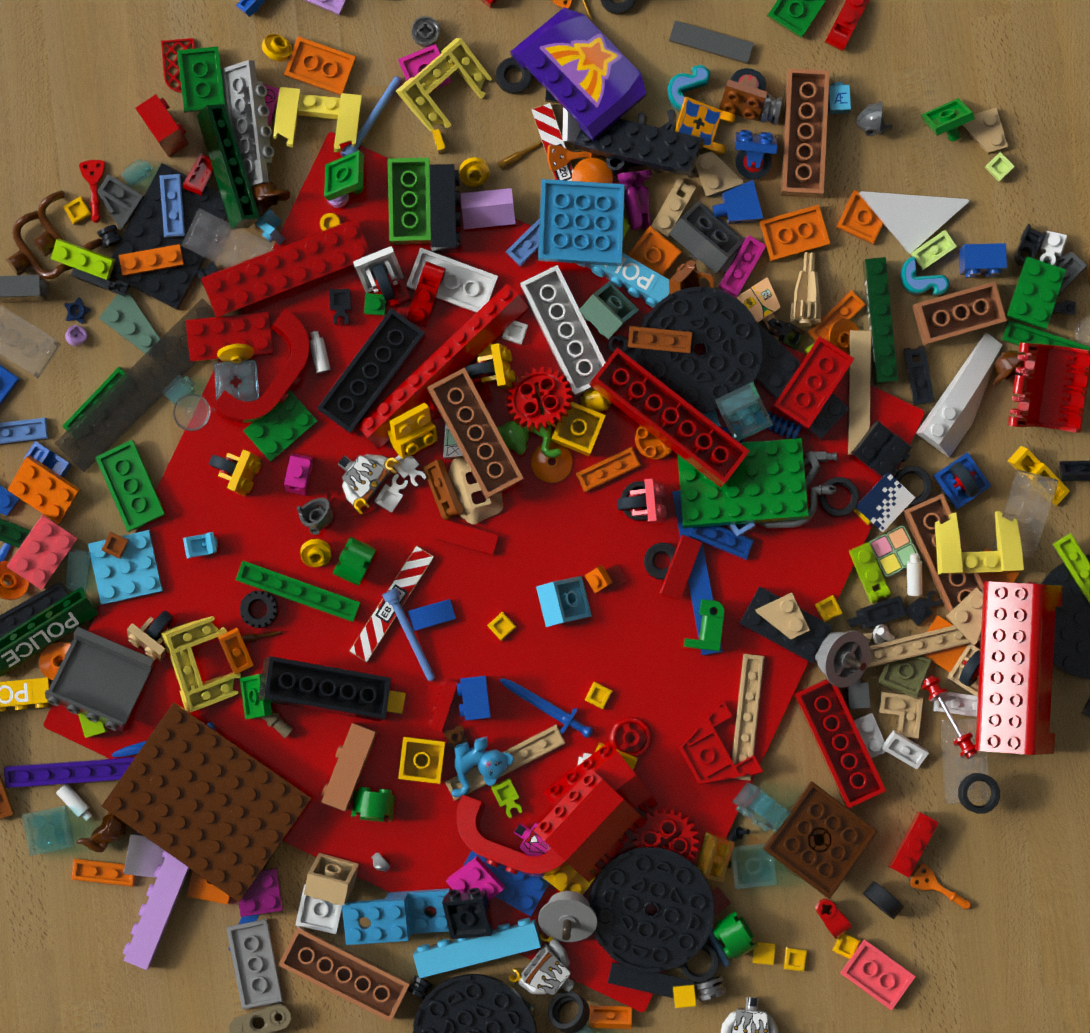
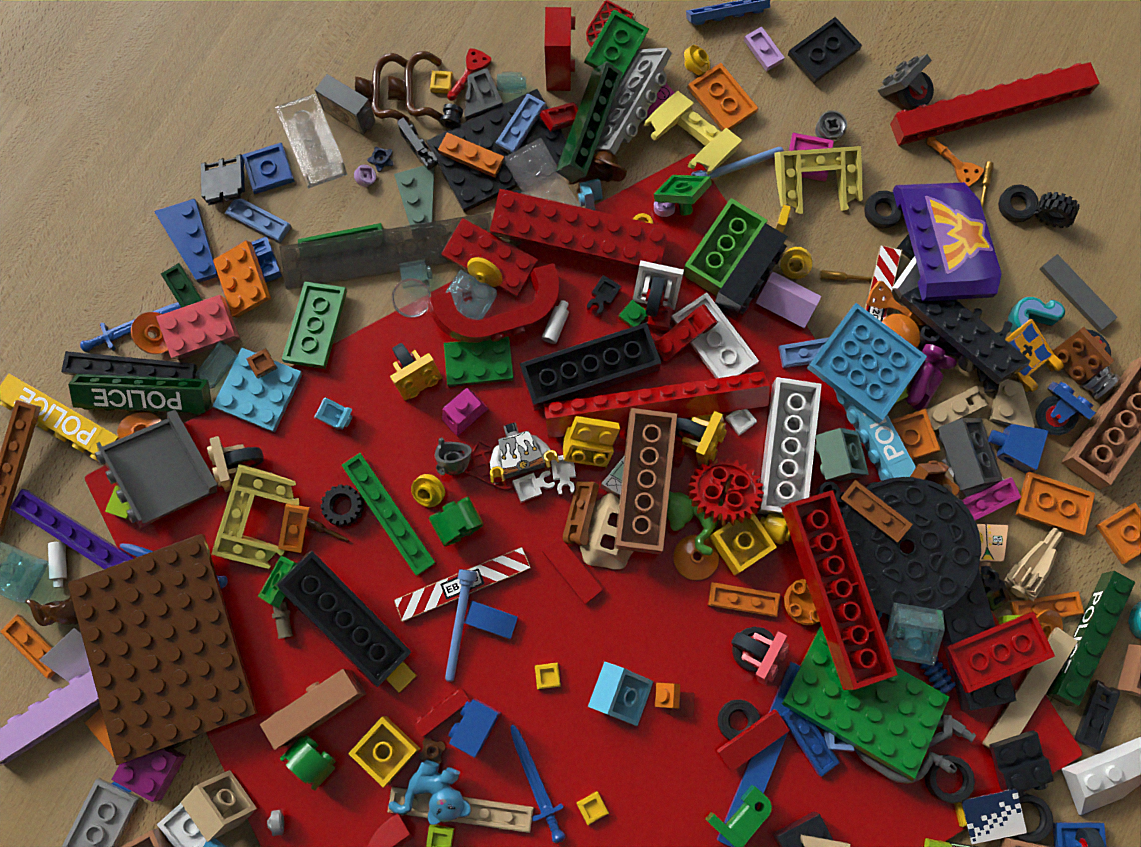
camera: 35 degrees right, 10 degrees down
(82, 259) = (415, 115): lime plate -> none

